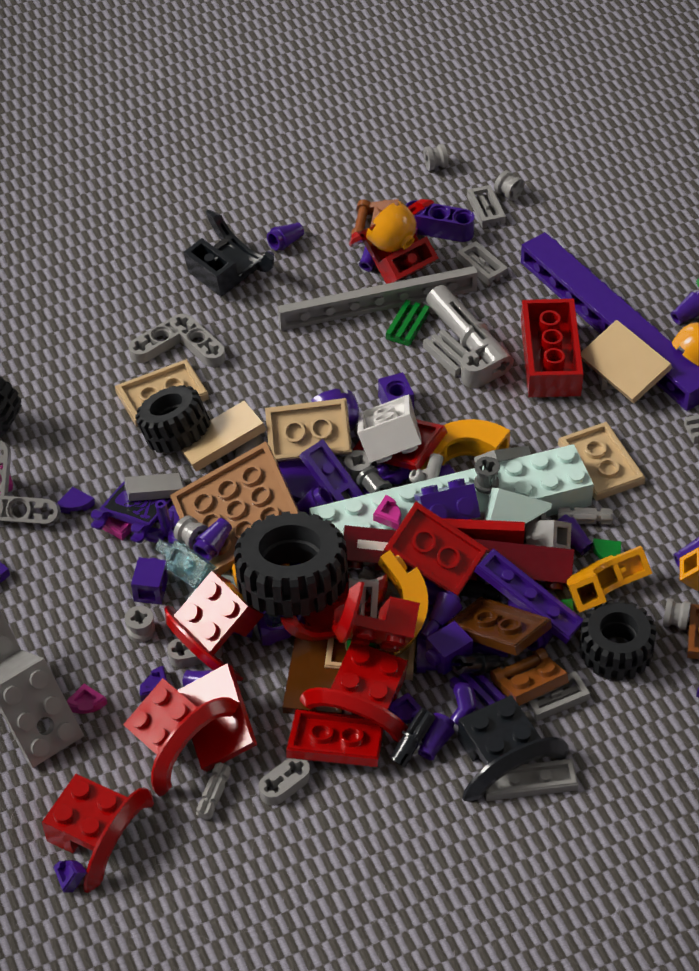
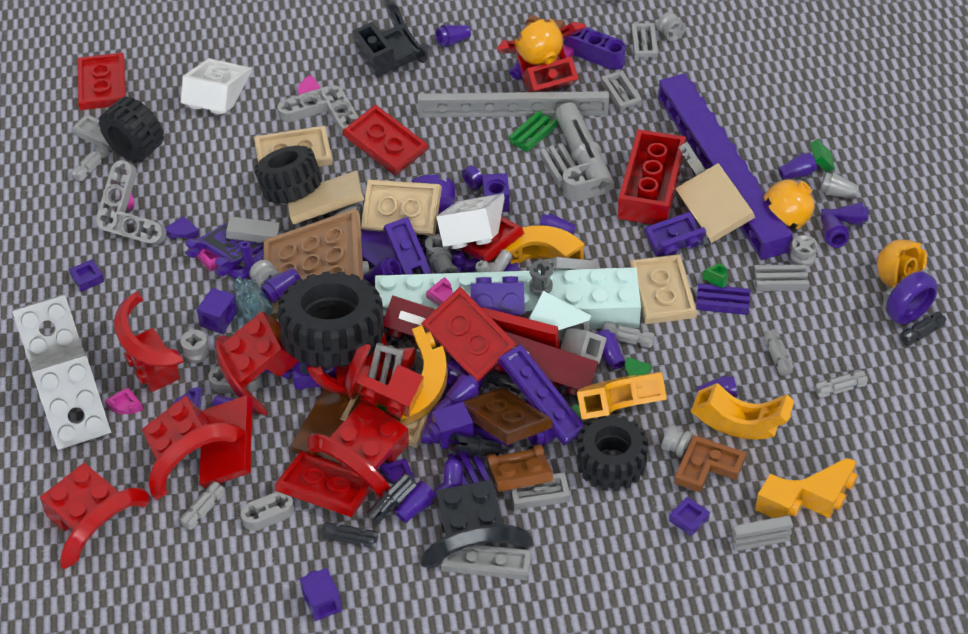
camera: 15 degrees right, 0 degrees up
(51, 338) = (214, 85): none -> white slope
(69, 874) = (50, 549): dark purple tile -> none
(93, 641) = (146, 351): none -> red piece
(152, 319) = (307, 85): none -> dark pink tile
(257, 362) = (385, 140): none -> red tile
(365, 384) = (472, 177): none -> dark purple tile
(376, 854) = (320, 594): none -> dark purple brick
(380, 785) = (350, 534): none -> black axle
(464, 413) = (554, 221): none -> dark purple cone
(589, 321) = (692, 159): none -> light grey tile
(593, 402) = (674, 234): none -> dark purple bracket
(651, 435) = (716, 275): none -> green tile
(664, 455) = (722, 299): none -> dark purple tile

